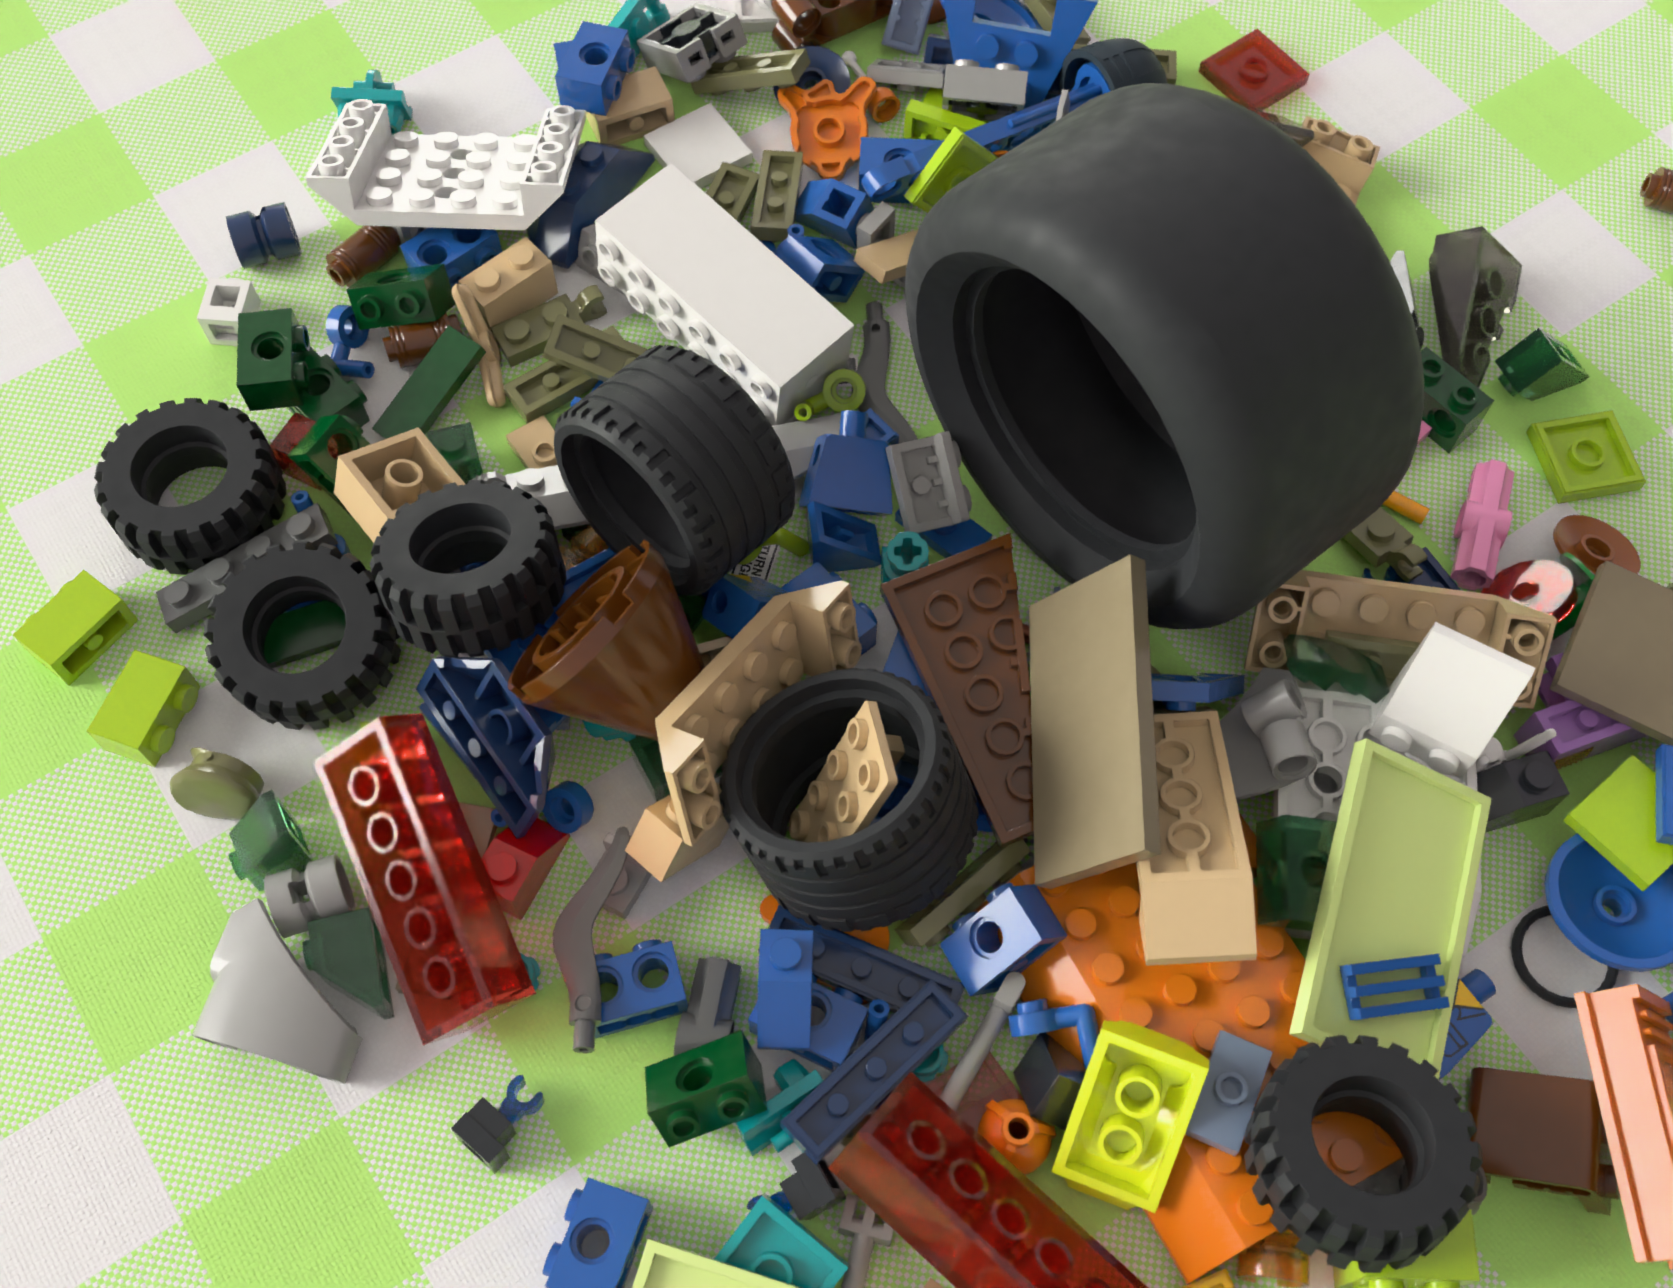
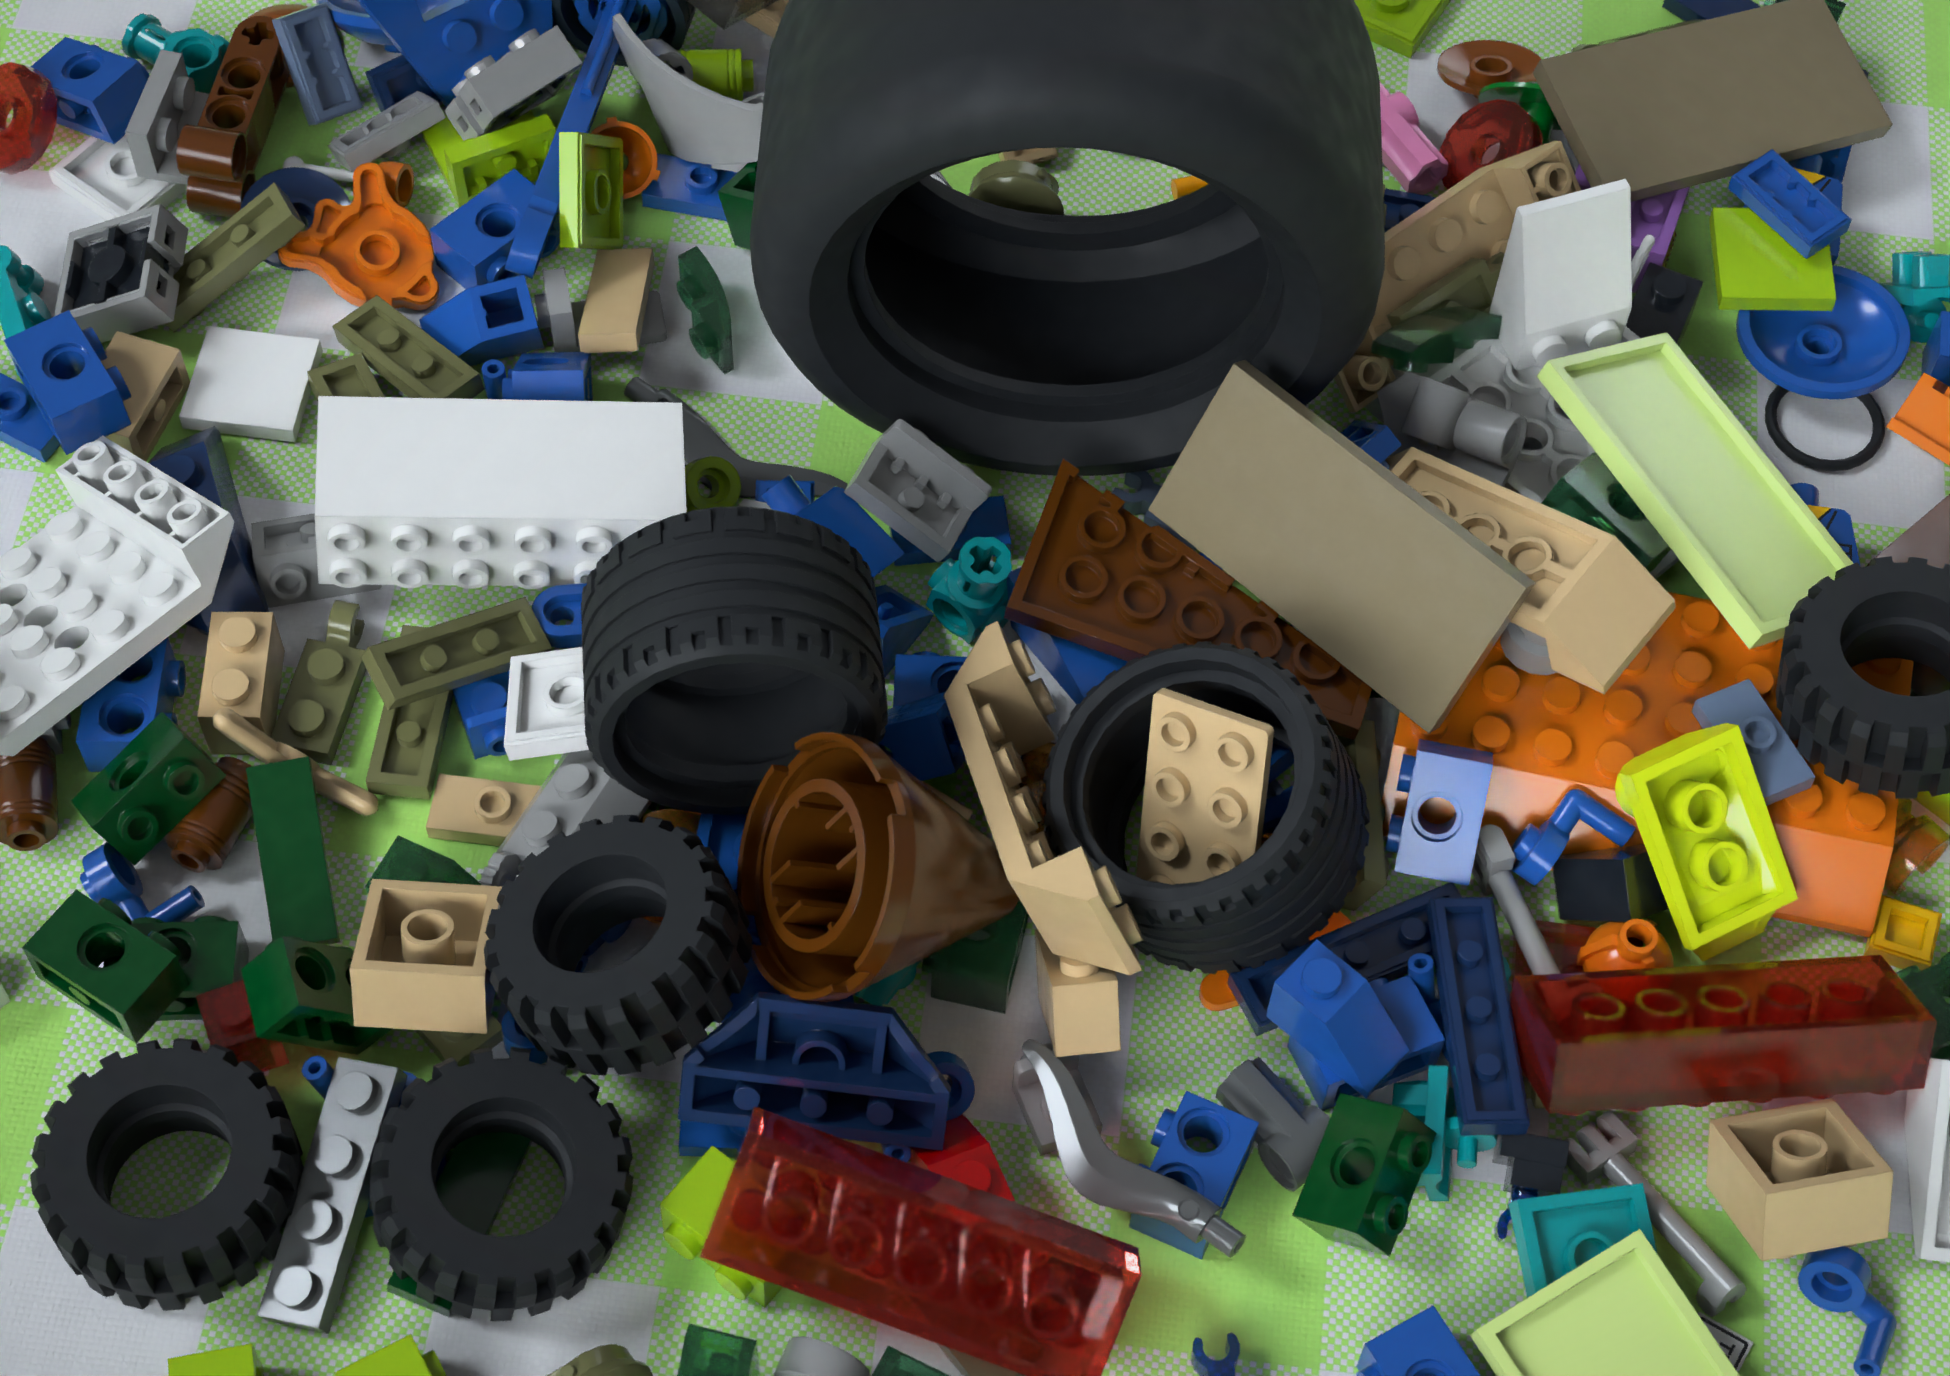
camera: 50 degrees left, 5 degrees down
(1429, 982) = (1787, 520): blue tile -> none

